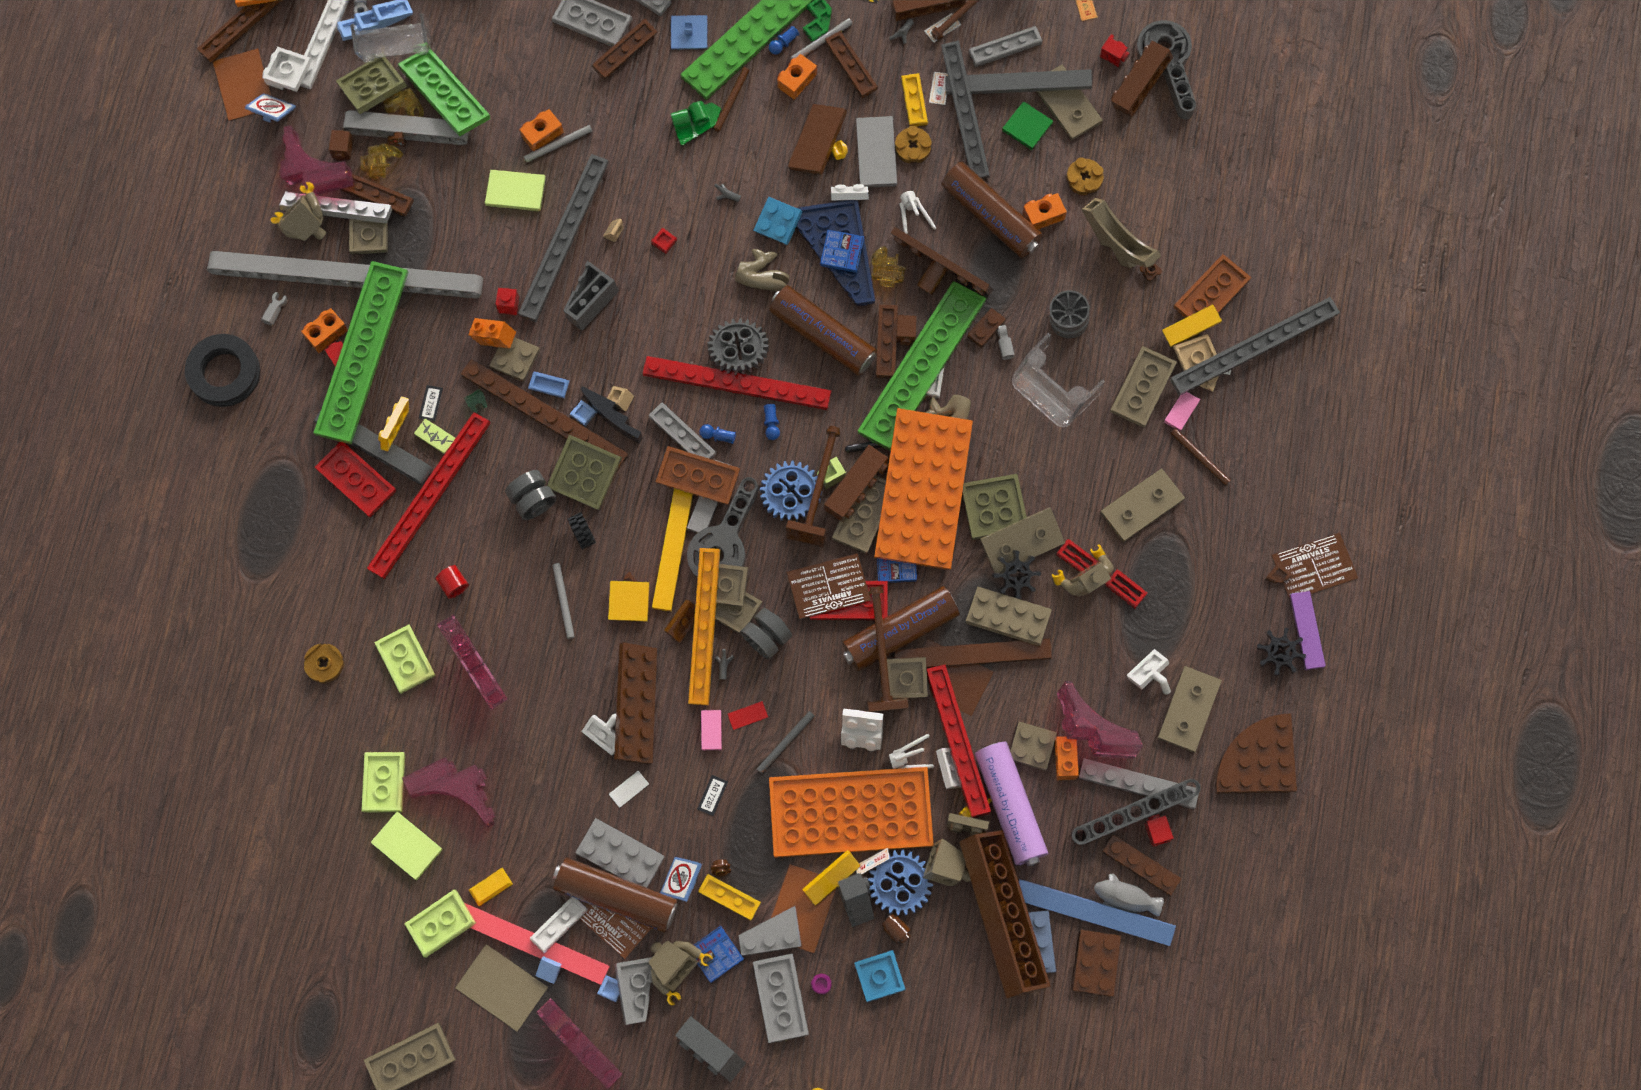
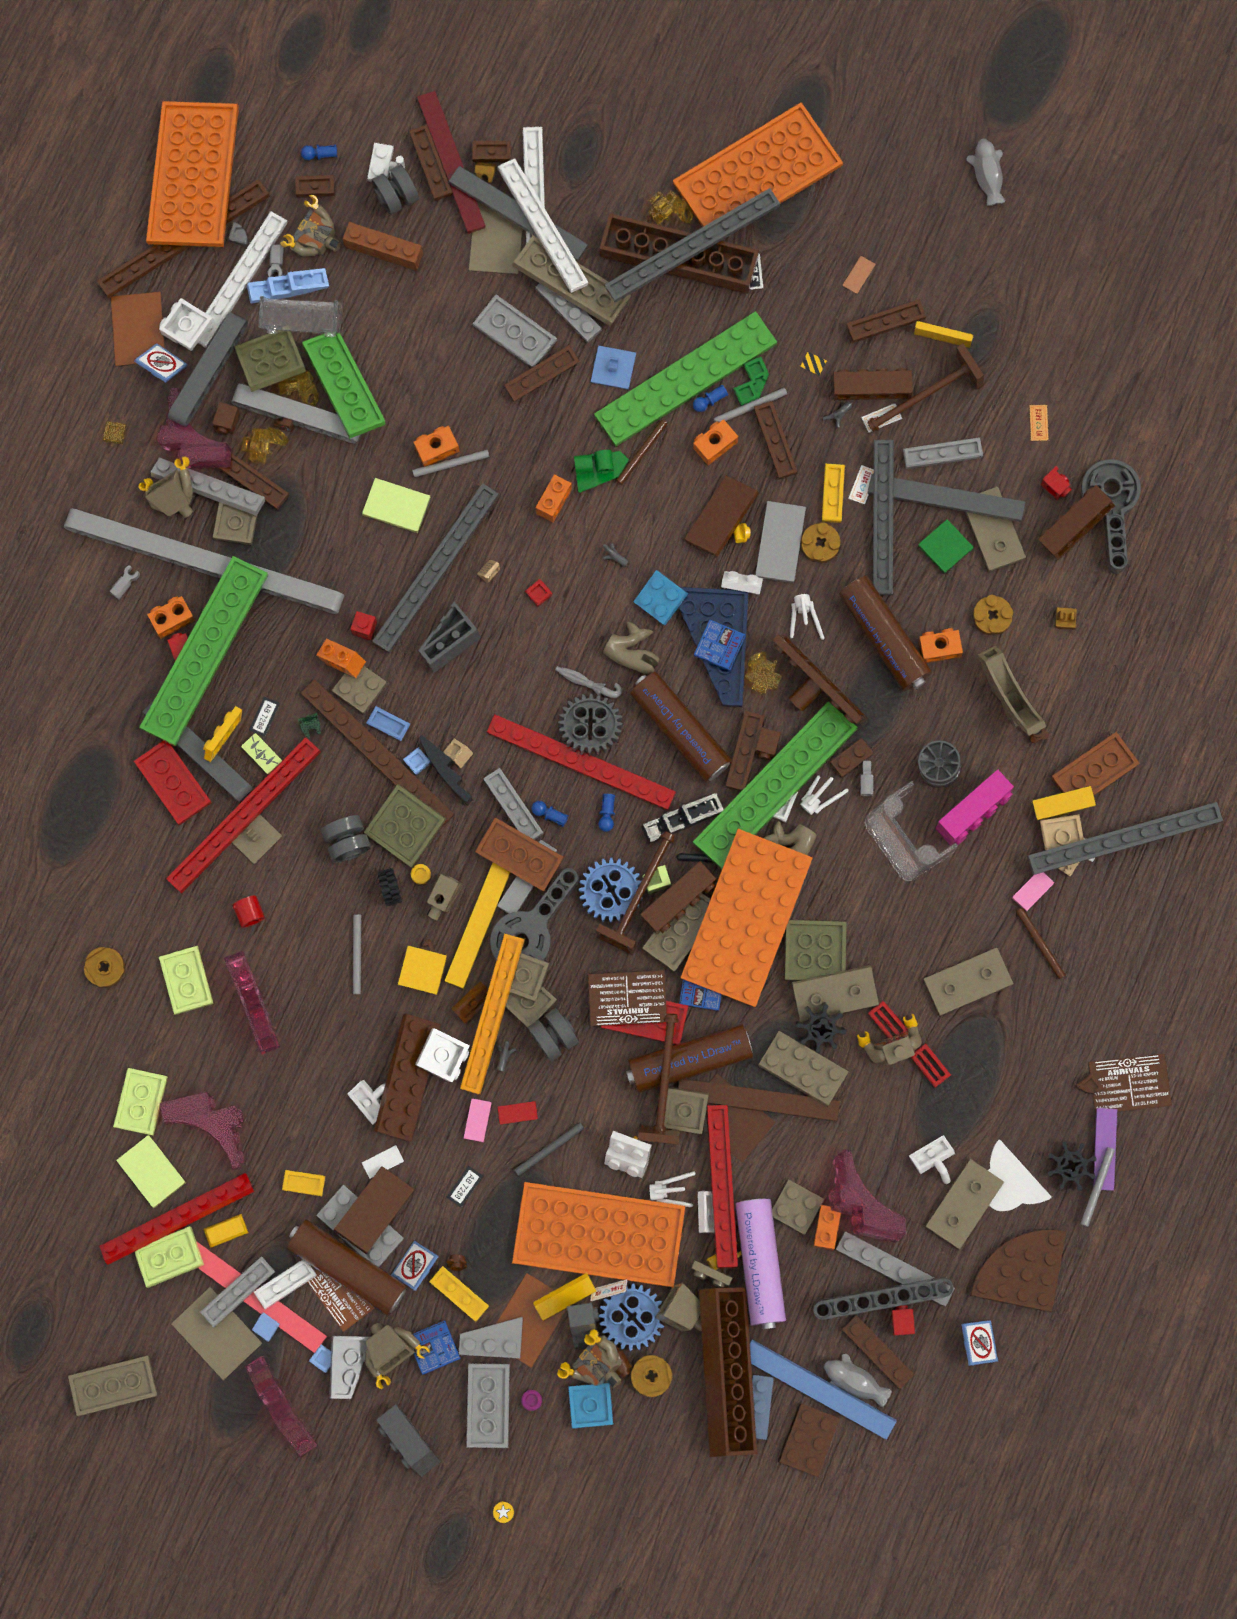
camera: 15 degrees right, 5 degrees up
(212, 347) = (44, 615): black tyre -> none
(238, 178) = (114, 432): none -> clear yellow tile
(314, 103) = (207, 369): none -> dark grey beam
(440, 885) = (176, 1218): none -> red plate
(446, 515) = (257, 839): none -> dark tan piece
(514, 942) = (237, 1291): none -> light grey tile
(556, 824) = (303, 1183): none -> yellow tile
(608, 514) = (420, 874): none -> yellow tile
(630, 835) = (374, 1210): none -> reddish brown tile
(634, 519) = (449, 889): none -> dark tan torso
(659, 154) = (553, 498): none -> orange brick
(665, 675) = (442, 1055): none -> white plate
(721, 309) = (580, 679): none -> light grey piece
(843, 413) = (682, 818): none -> slope
(876, 933) = (596, 1363): none -> torso
(937, 925) = (642, 1368): none -> pearl gold plate
(958, 374) = (811, 803): none -> white plant
(1112, 346) = (977, 805): none -> dark pink brick
(1143, 386) = (999, 856): dark tan plate -> none
(1151, 166) = (1065, 618): none -> pearl gold tile
(1235, 679) = (1018, 1183): none -> white sticker
(1236, 834) = (979, 1342): none -> piece
(1310, 665) = (1097, 1187): none -> light grey bar

